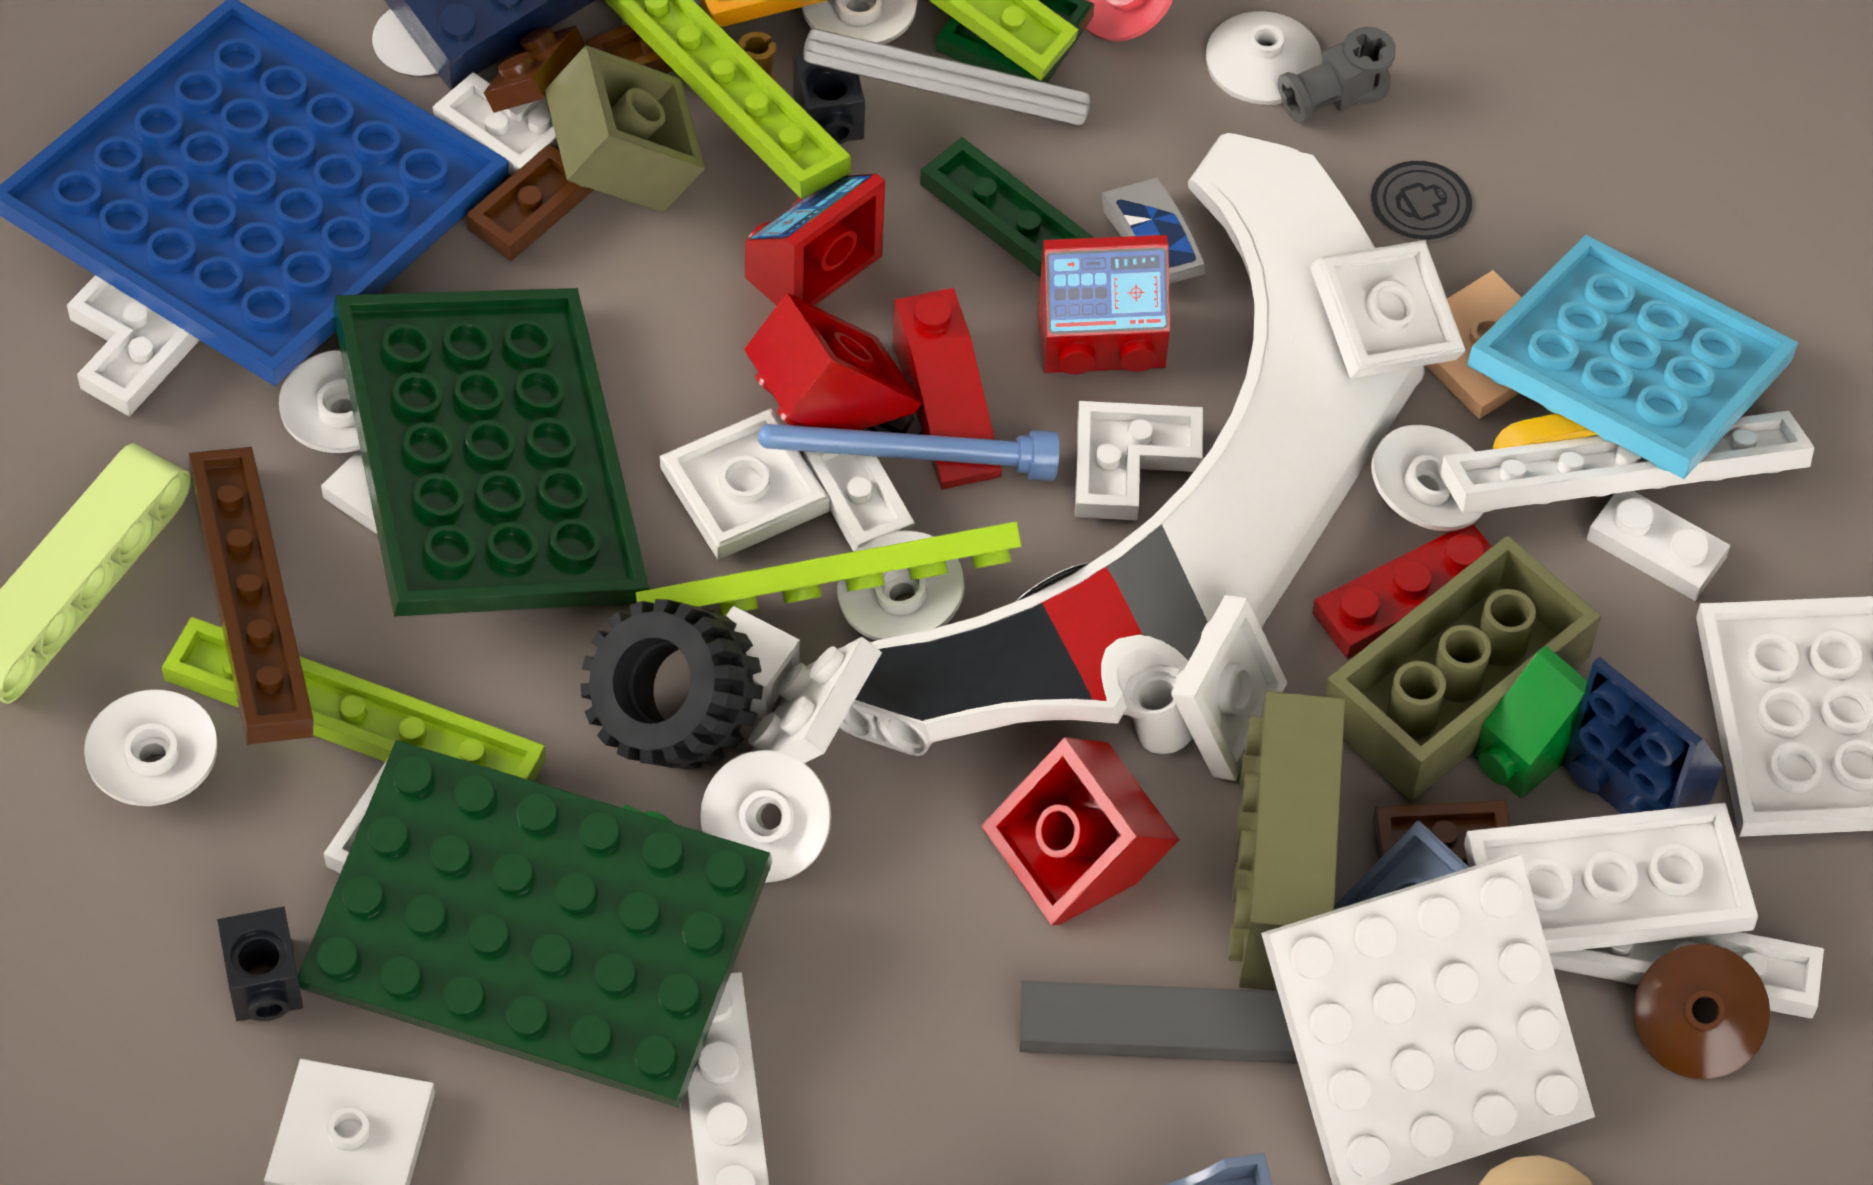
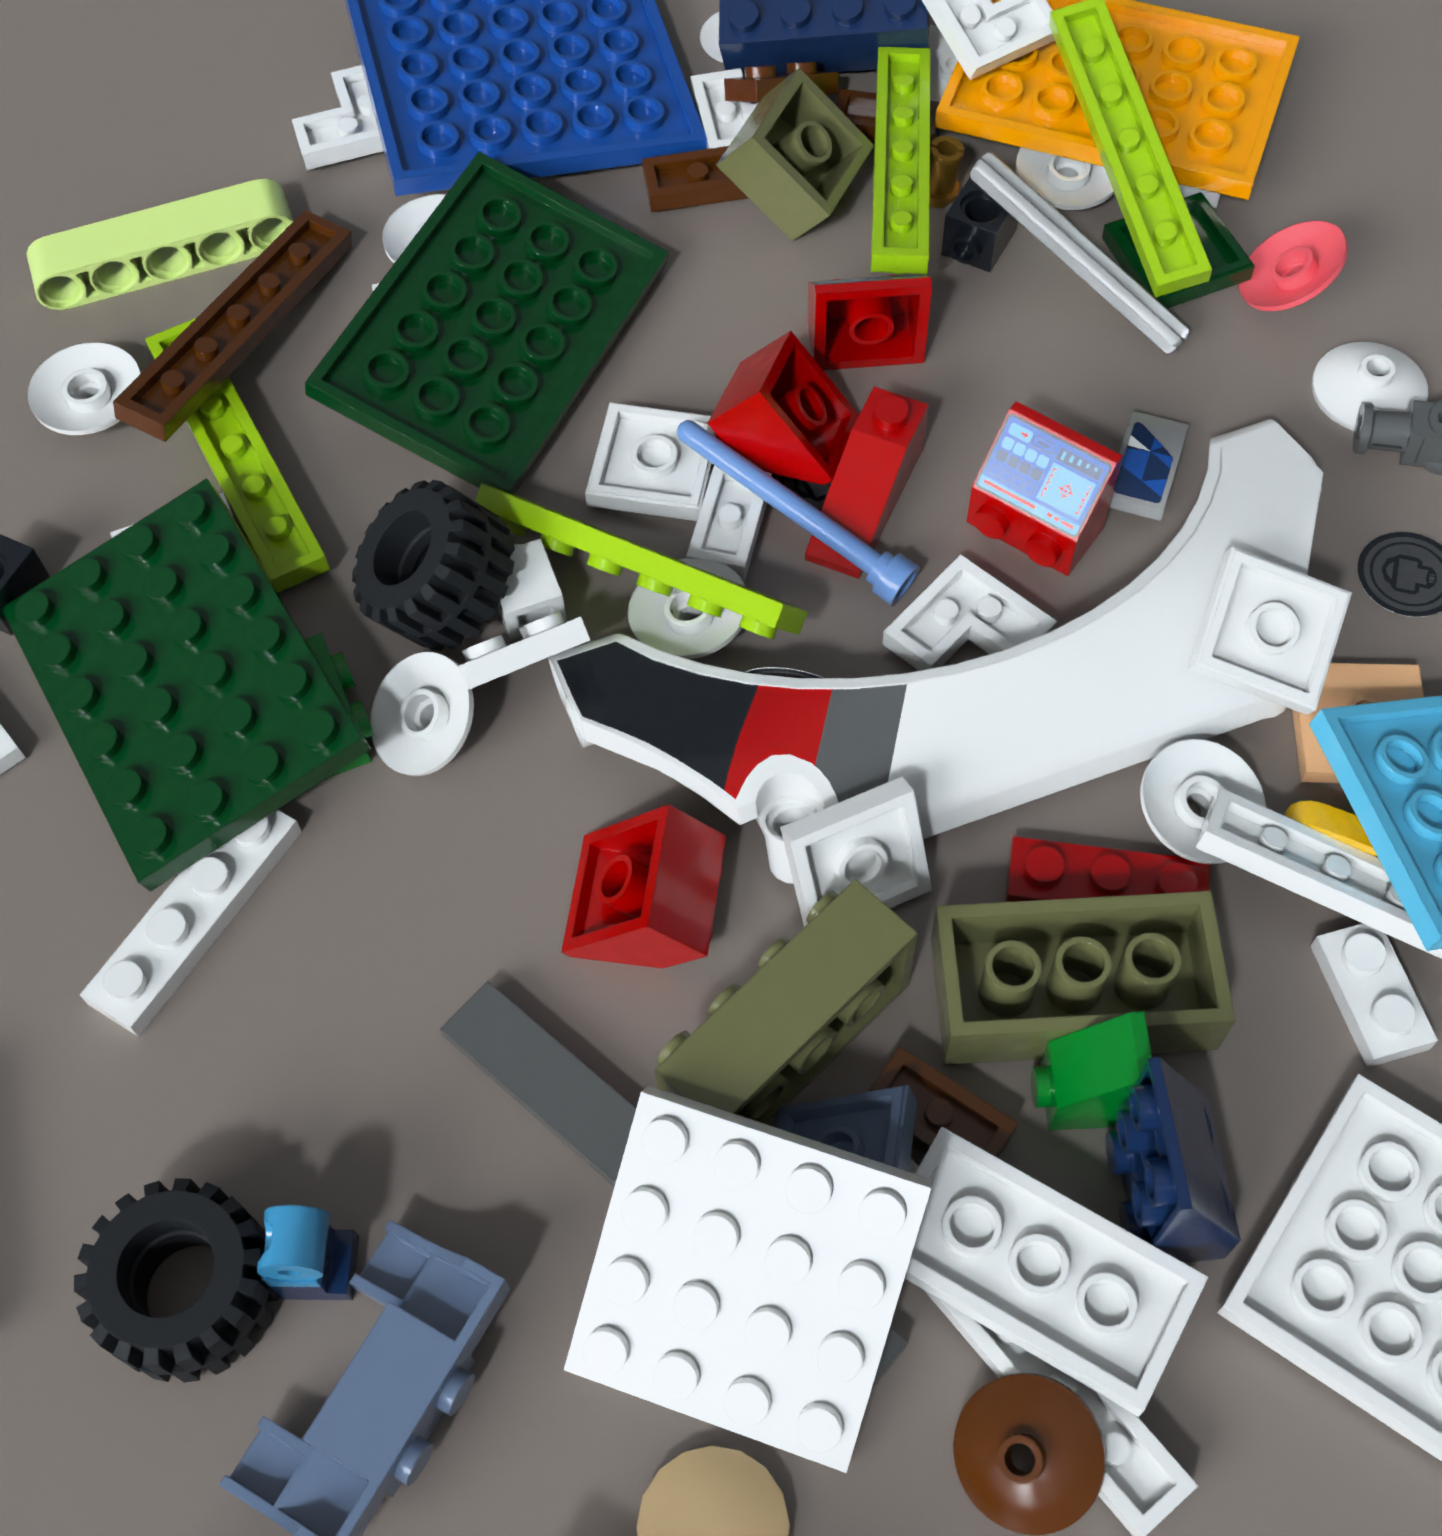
camera: 45 degrees right, 5 degrees up
(997, 203) = (1041, 365): dark green plate -> none

